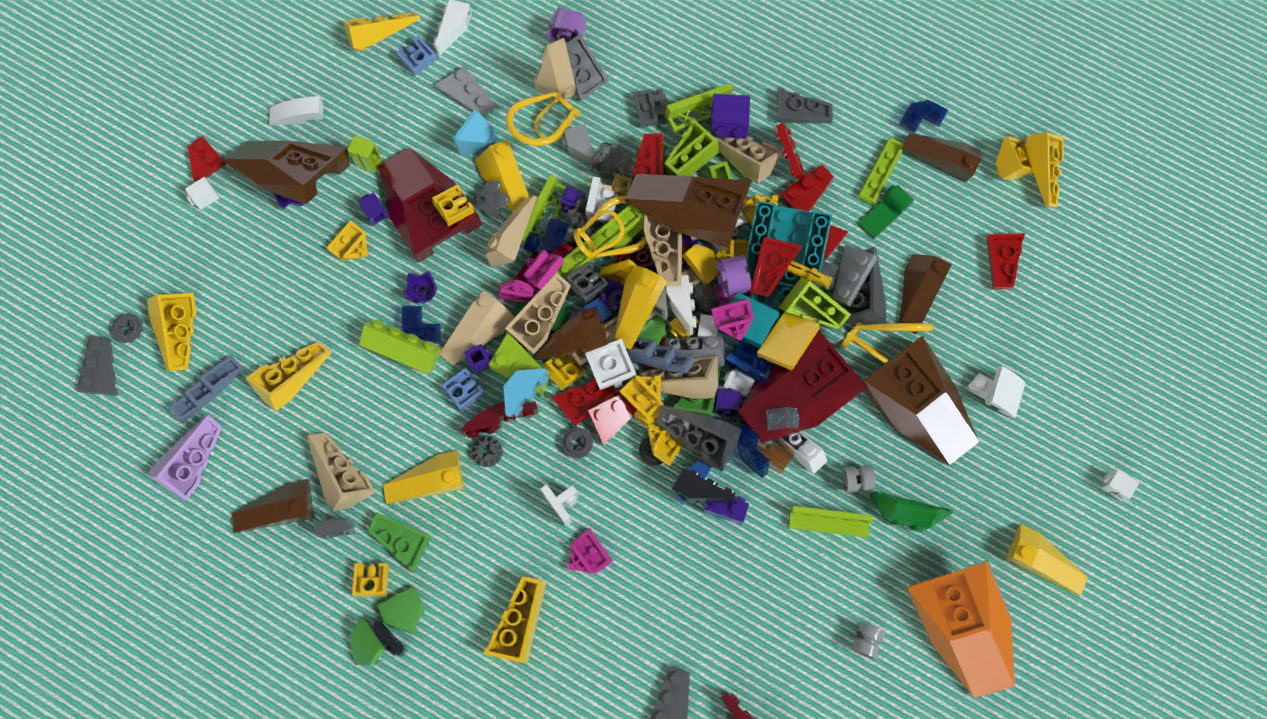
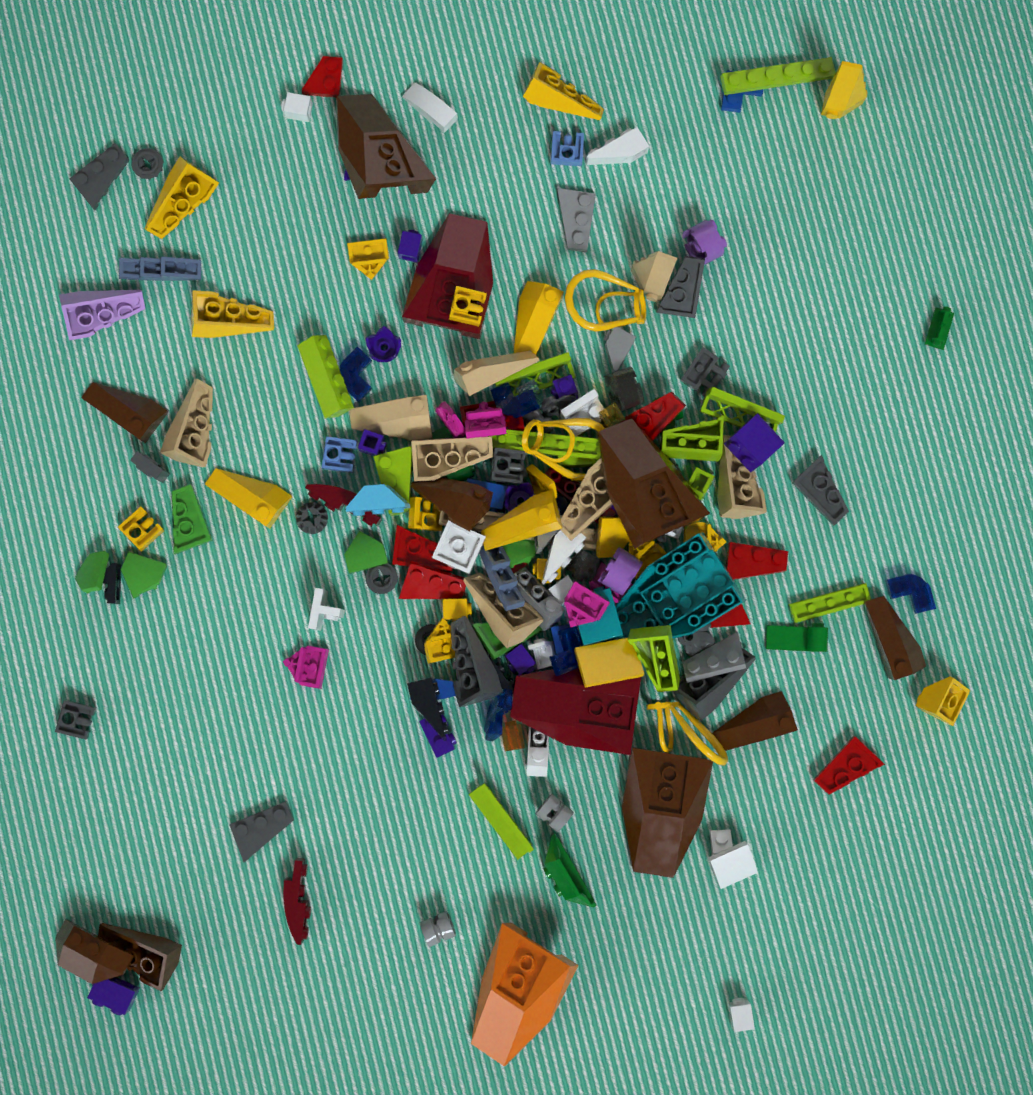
camera: 45 degrees right, 10 degrees up
(364, 153) = (445, 195): lime brick -> none
(474, 135) = (544, 262): medium azure slope -> none
(493, 199) = (508, 327): dark grey plate -> none
(518, 624) = (209, 665): yellow wedge -> none
(549, 437) = (364, 553): none -> bright green slope
(644, 394) = (461, 593): yellow slope -> none
(772, 264) = (658, 593): red wing -> none
(782, 418) = (539, 715): clear light blue bracket -> none
(796, 167) = (776, 510): red wing -> none
(810, 274) = (683, 645): yellow pin -> none
(1039, 556) = (627, 1004): yellow wedge -> none
(1045, 154) = (968, 723): yellow wedge -> none

